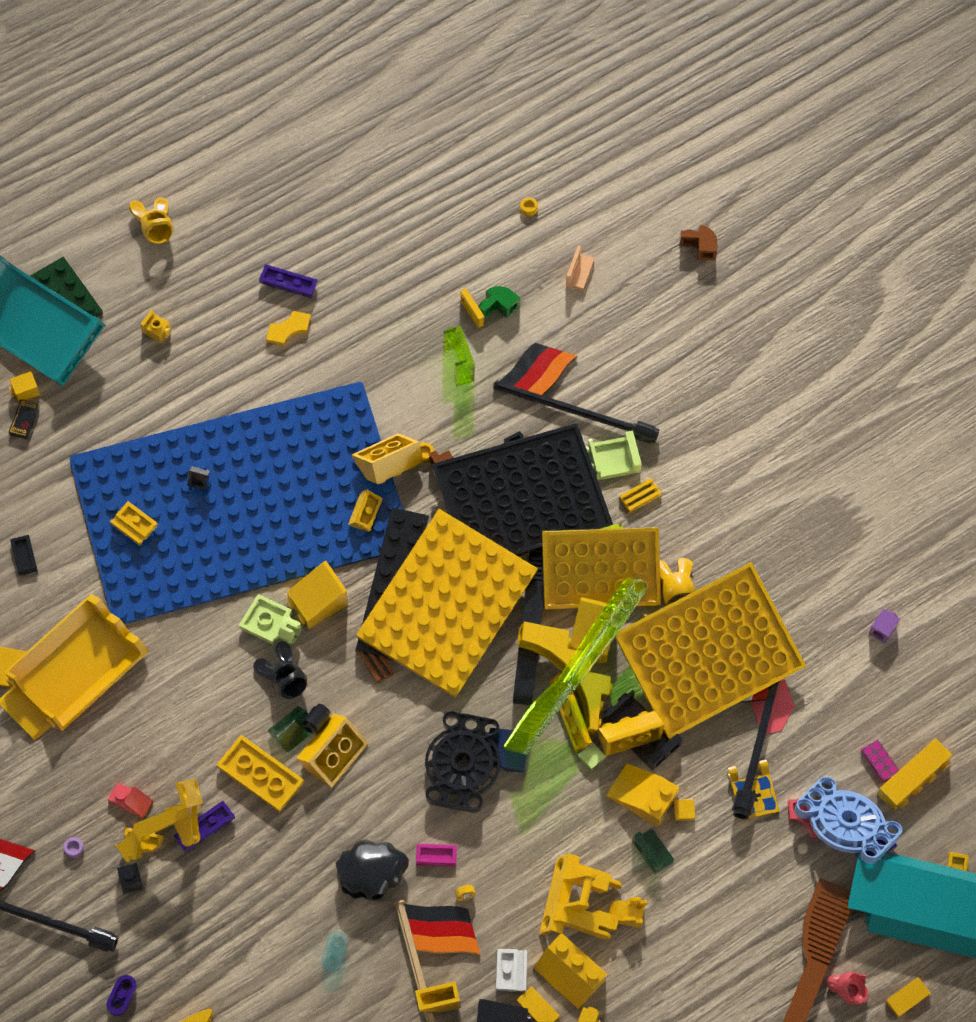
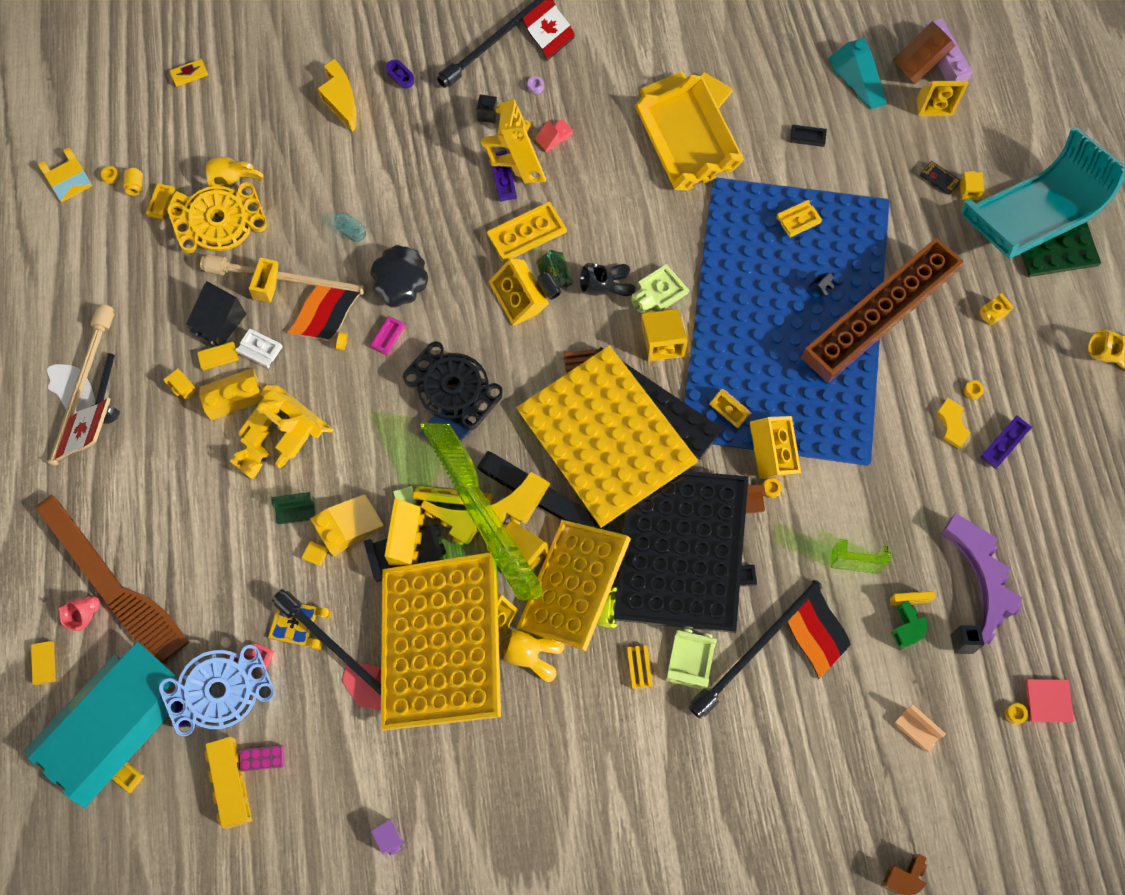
camera: 120 degrees right, 5 degrees up
(206, 414) = (881, 310): none -> dark orange brick
(246, 322) = (973, 389): none -> yellow tile
(420, 256) = (978, 548): none -> medium lavender arch
(489, 255) = (967, 639): none -> black brick
(506, 186) = (1049, 701): none -> coral tile

